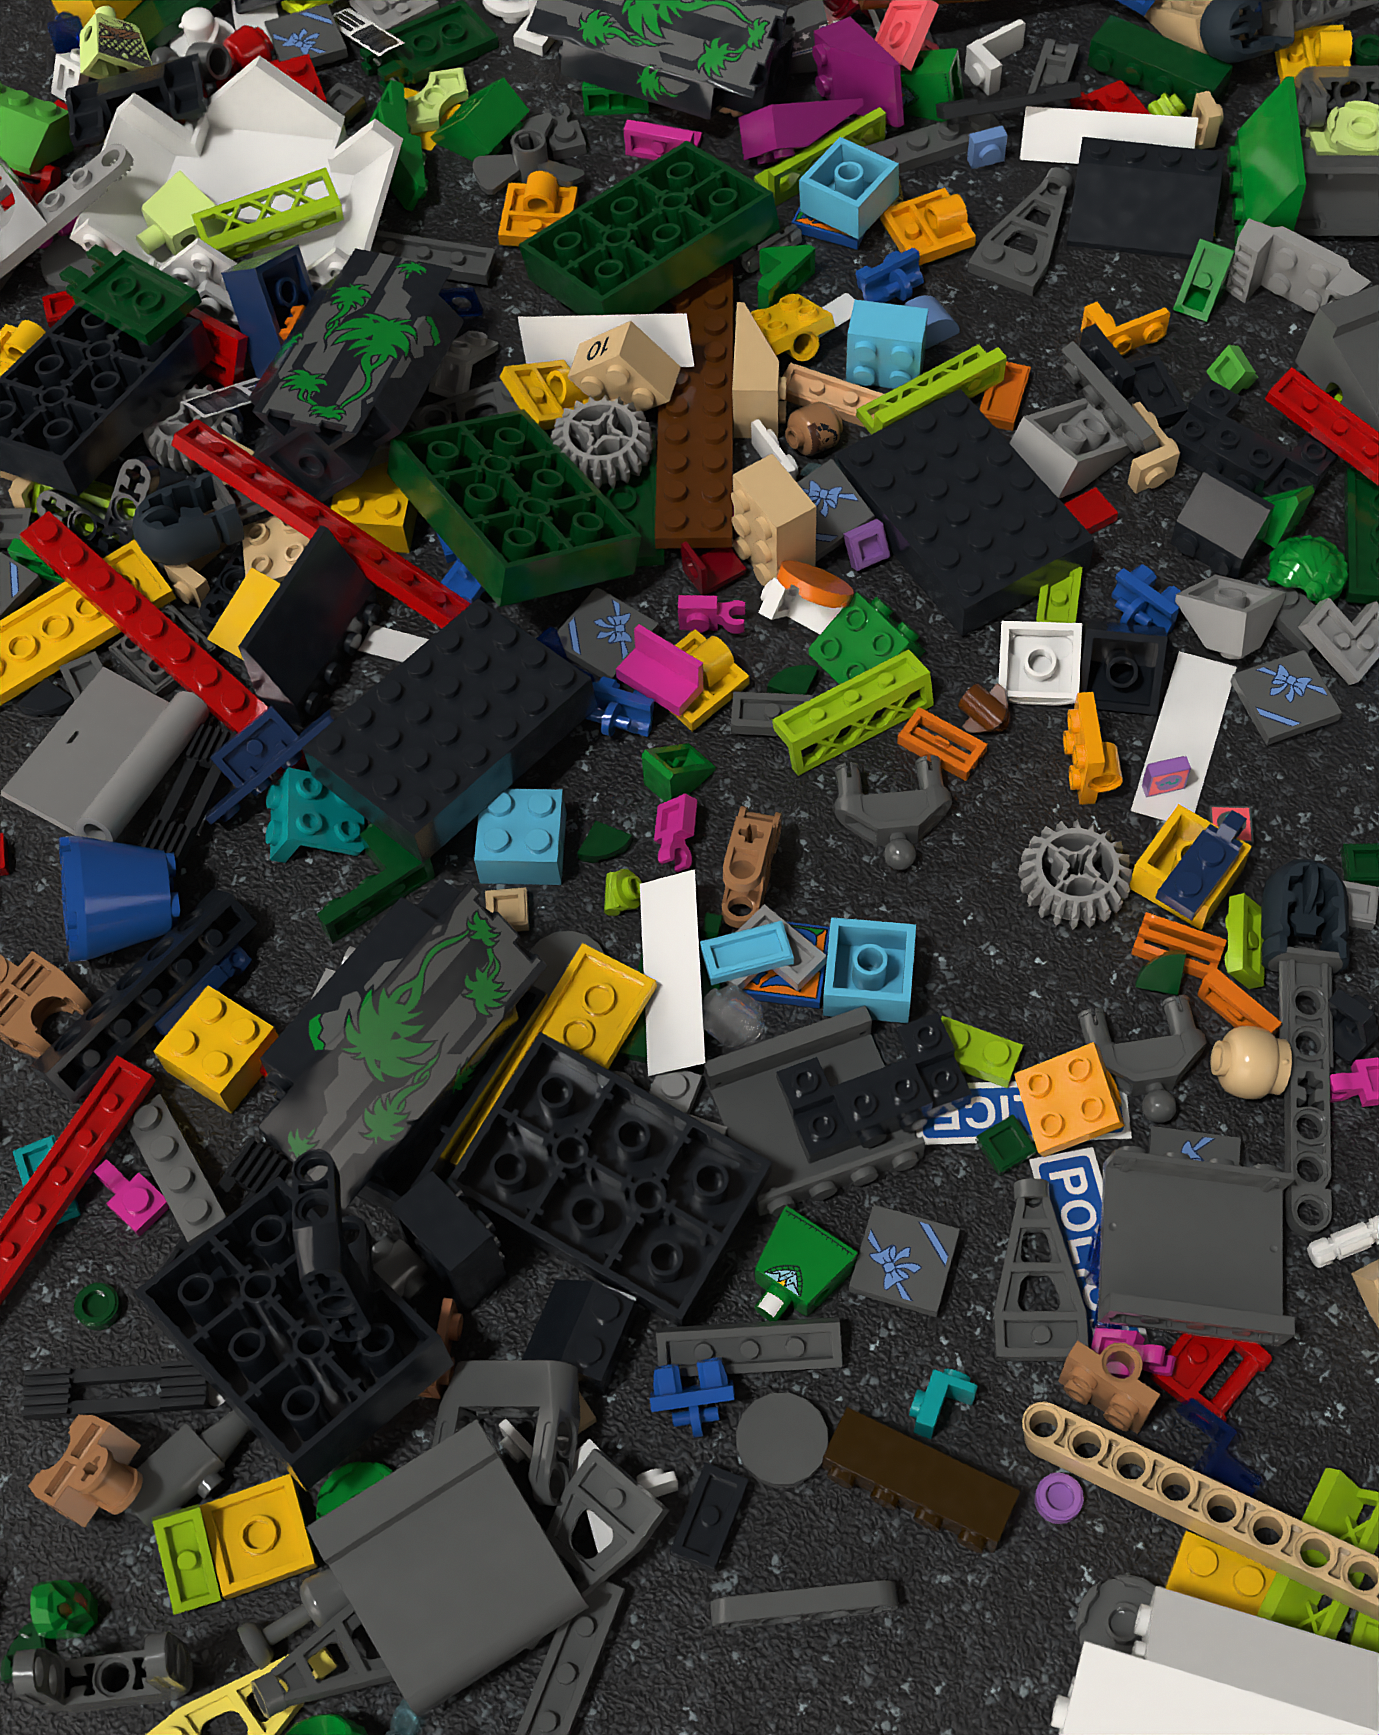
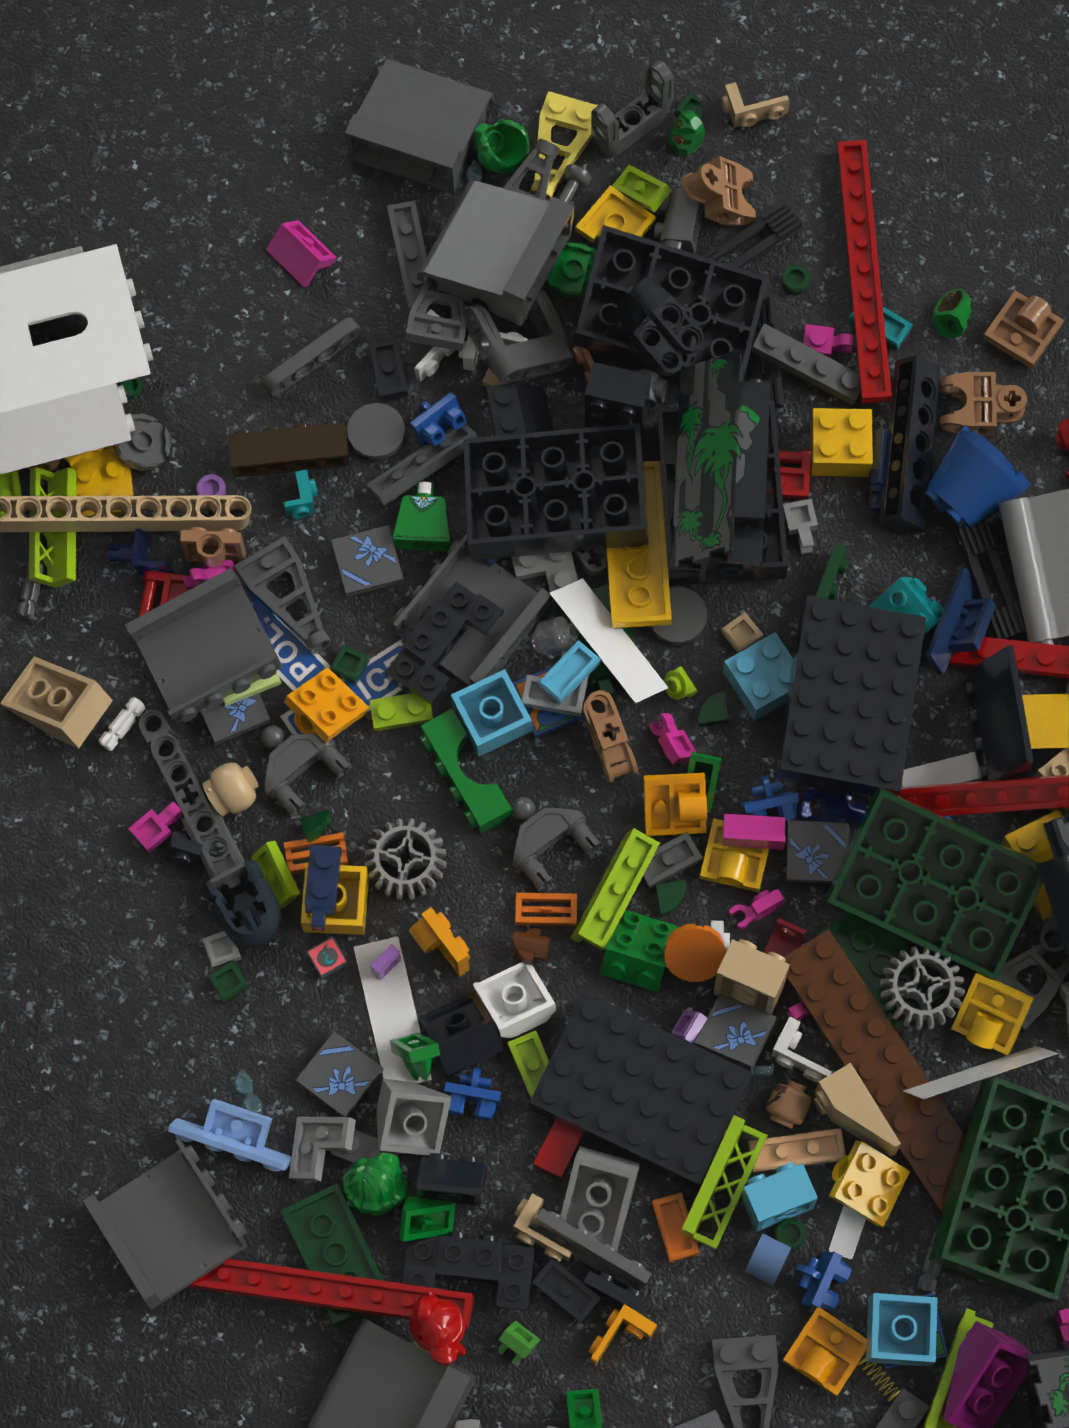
camera: 145 degrees right, 10 degrees up
(624, 366) = (944, 1047): tan brick -> none
(716, 749) = (675, 804): none -> light orange plate
(783, 272) = (903, 1241): green slope -> none
(942, 975) = (484, 803): none -> green arch
(1188, 658) = (416, 1053): none -> green tile
(1234, 1003) = (257, 826): orange tile -> none
(1328, 368) = (438, 1328): none -> red hair

